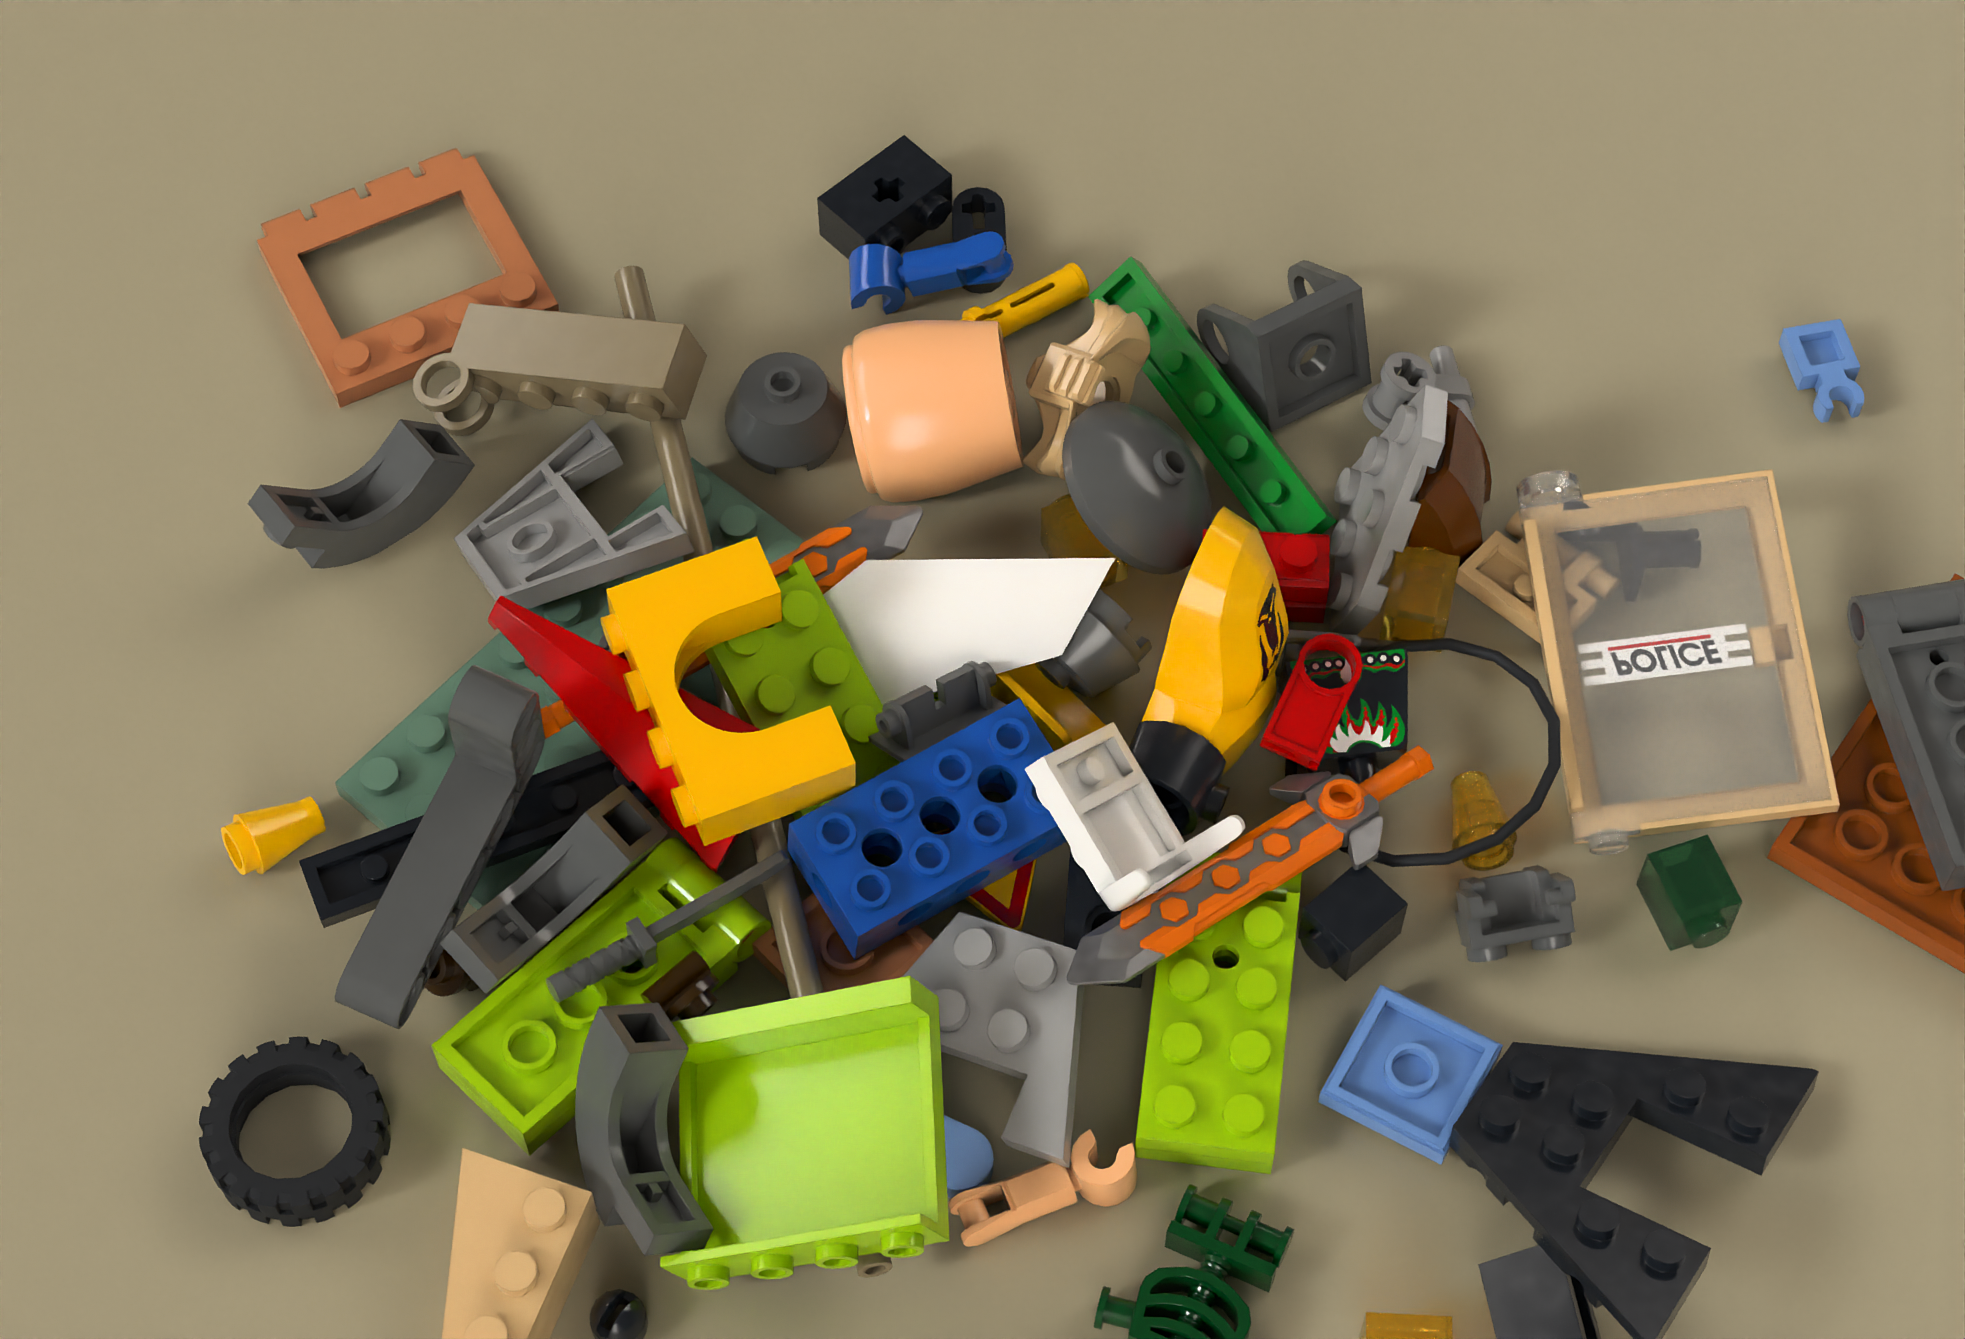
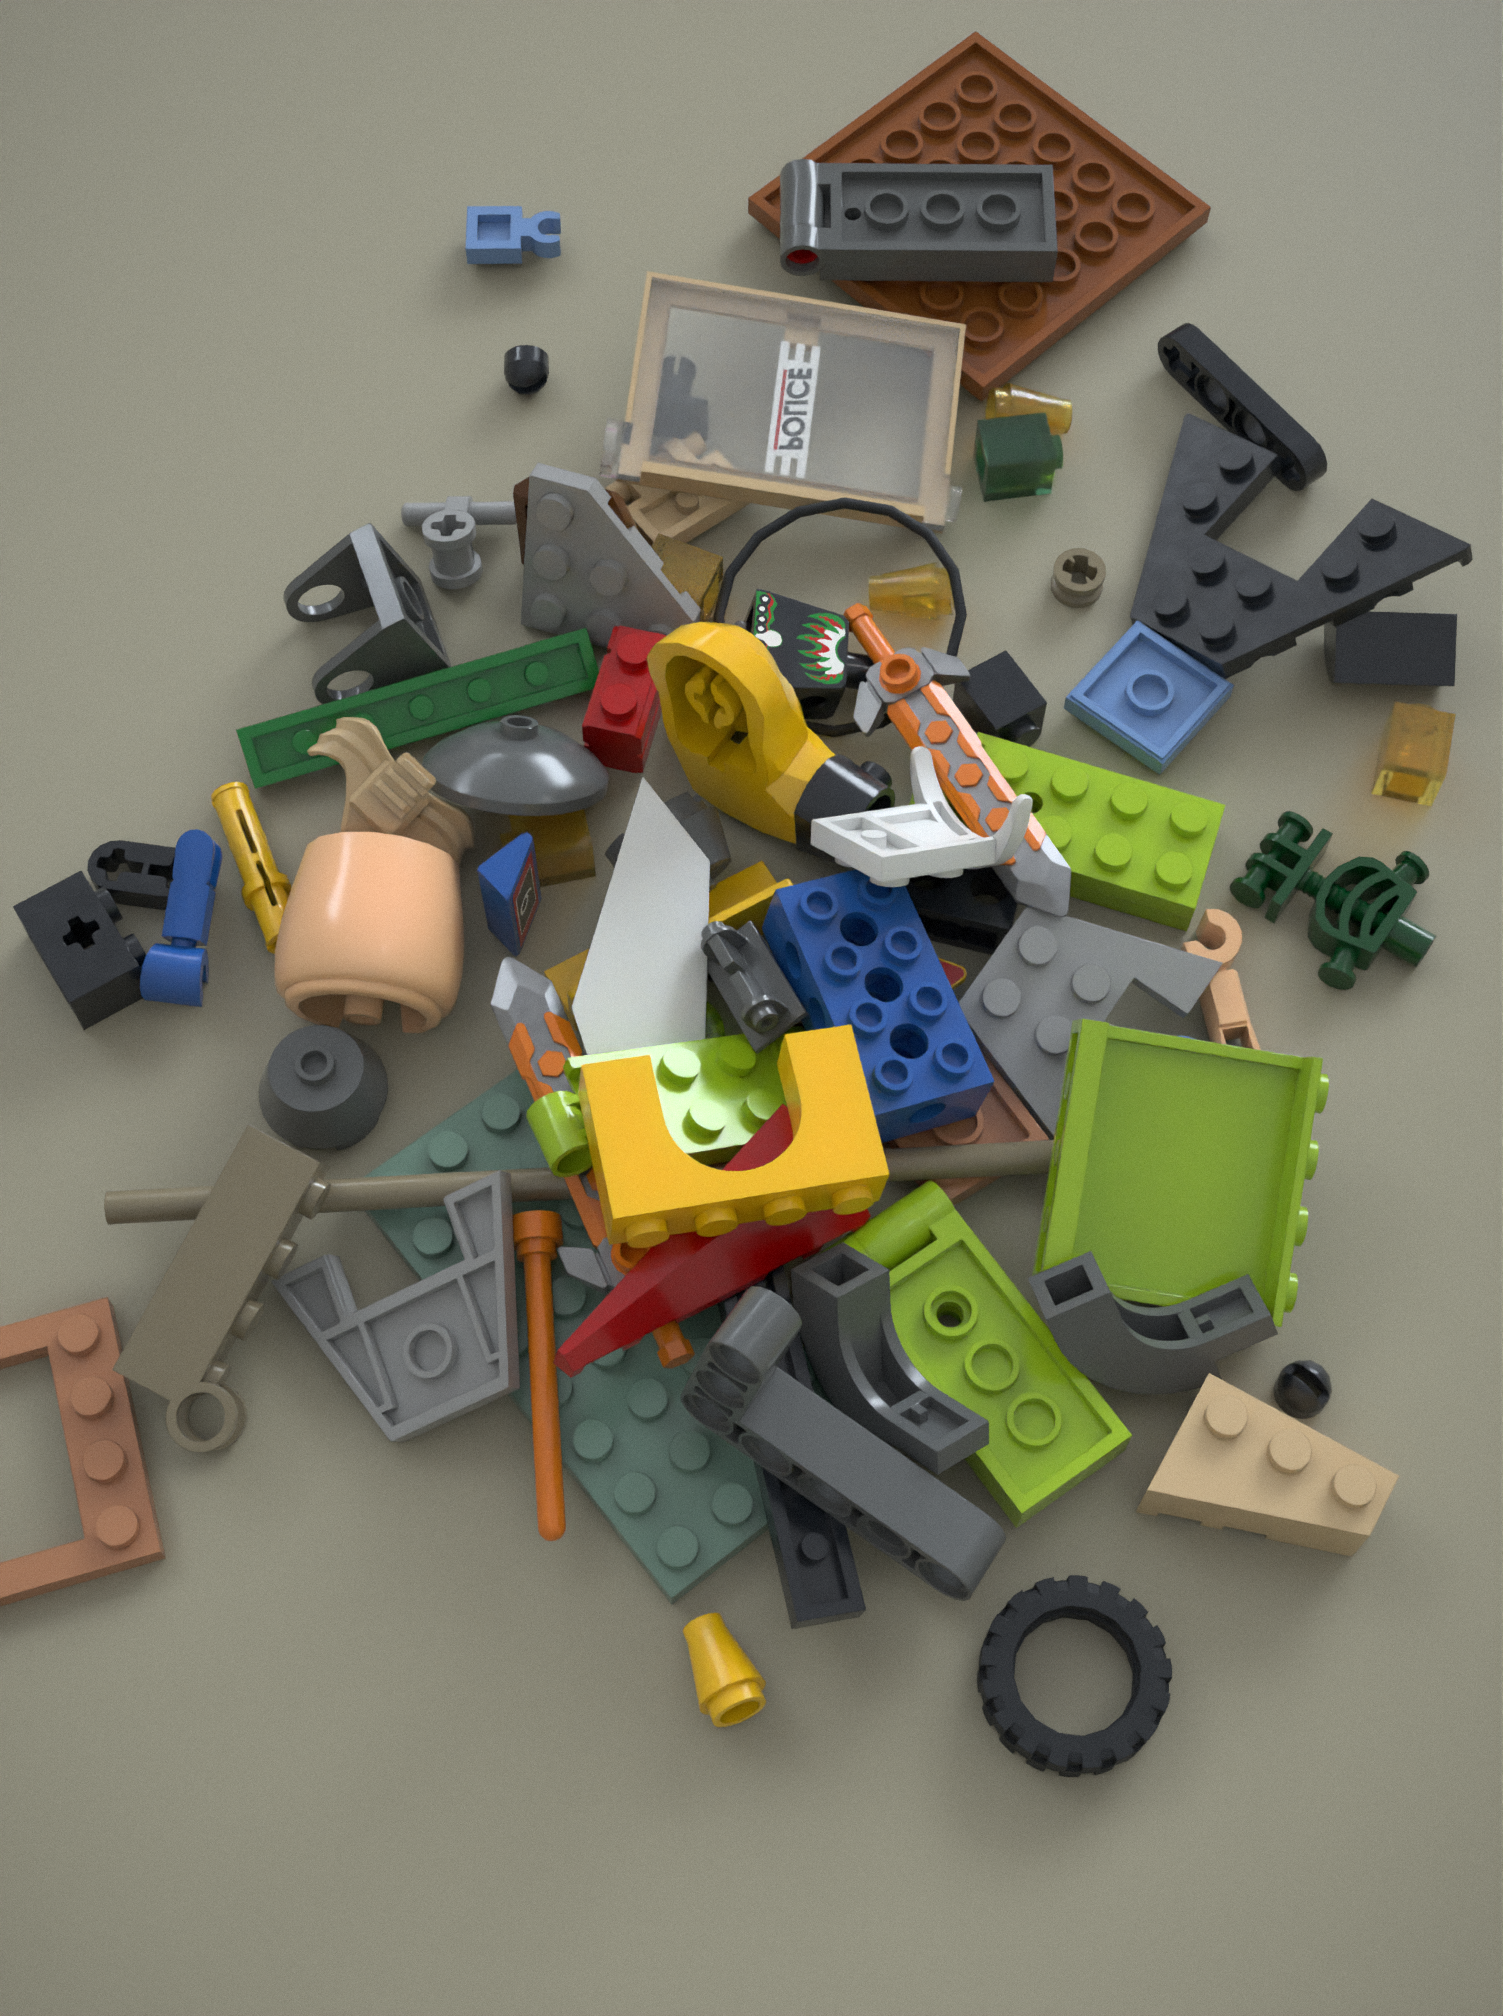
camera: 80 degrees left, 5 degrees up
(374, 506) = (325, 1518): dark grey arch -> none
(480, 642) = (536, 1243): none -> orange piece
(642, 941) = (952, 1288): dark grey sword -> none
(684, 989) = (1008, 1257): dark brown plate -> none
(1003, 510) = (511, 891): none -> blue slope
(1308, 712) = (816, 674): red piece -> none
(1514, 910) = (1010, 583): dark grey piece -> none
(1555, 965) = (1080, 561): none -> dark tan bush
(1650, 417) = (526, 369): none -> black hinge
(1764, 903) = (1018, 400): none -> clear yellow cone
(1844, 1128) = (1241, 404): none -> black beam

